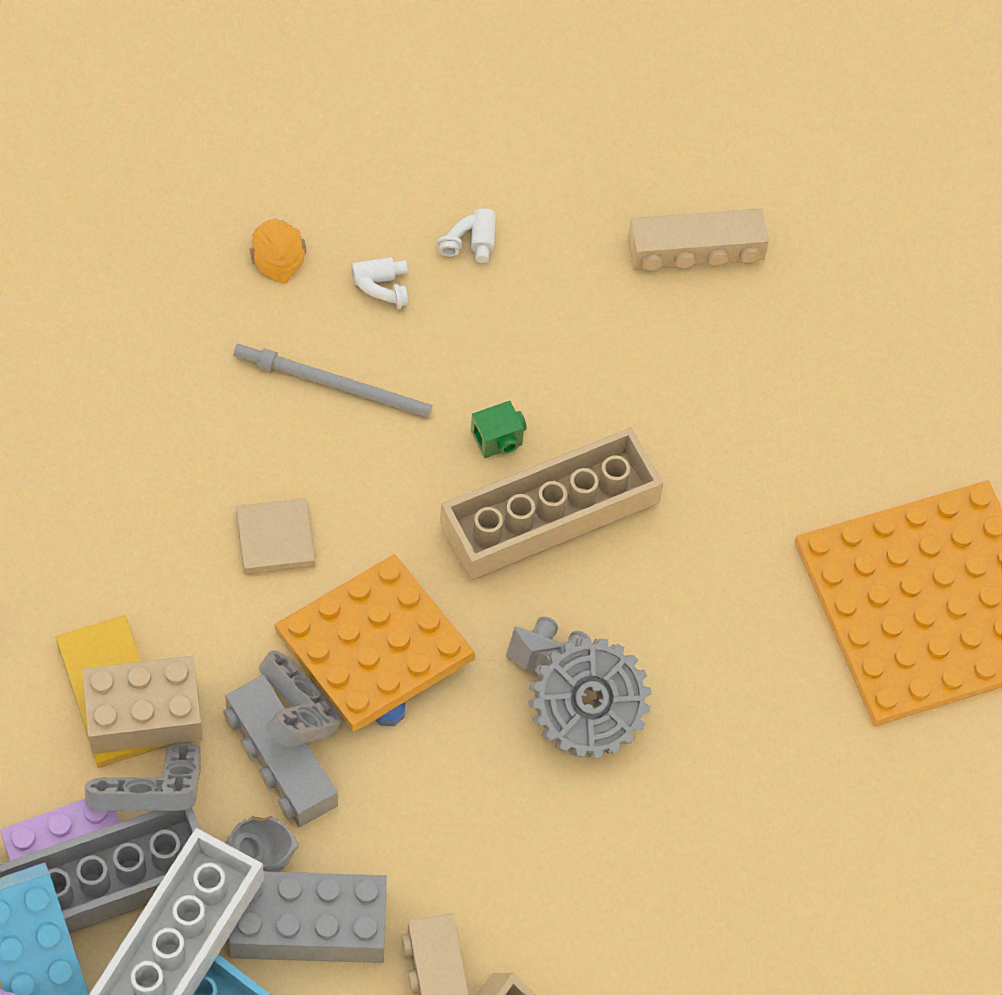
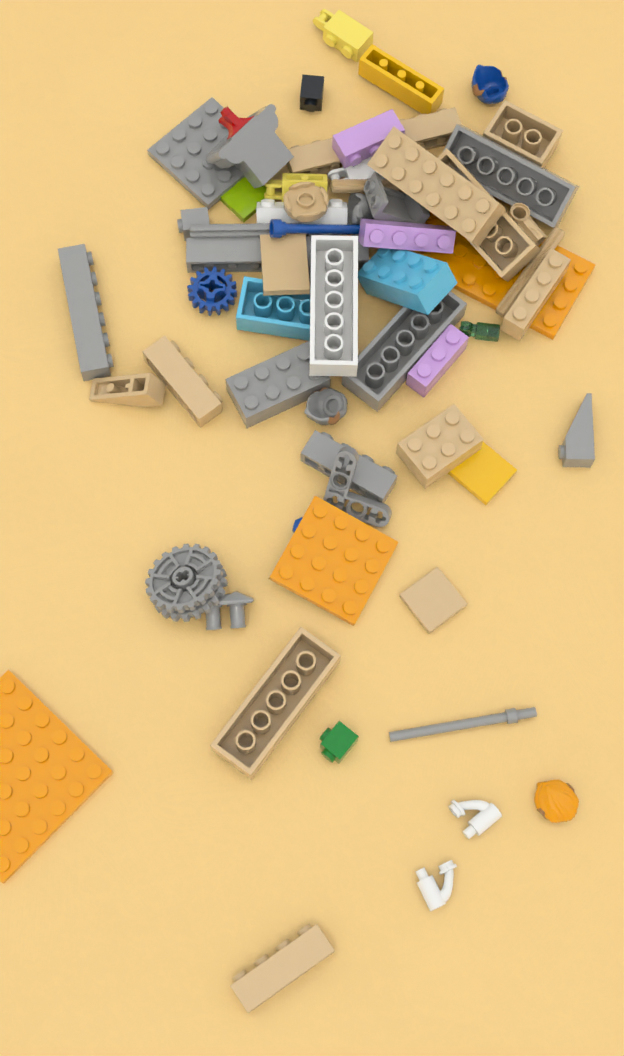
camera: 155 degrees right, 10 degrees up
(172, 792) = (395, 395): light grey beam -> none

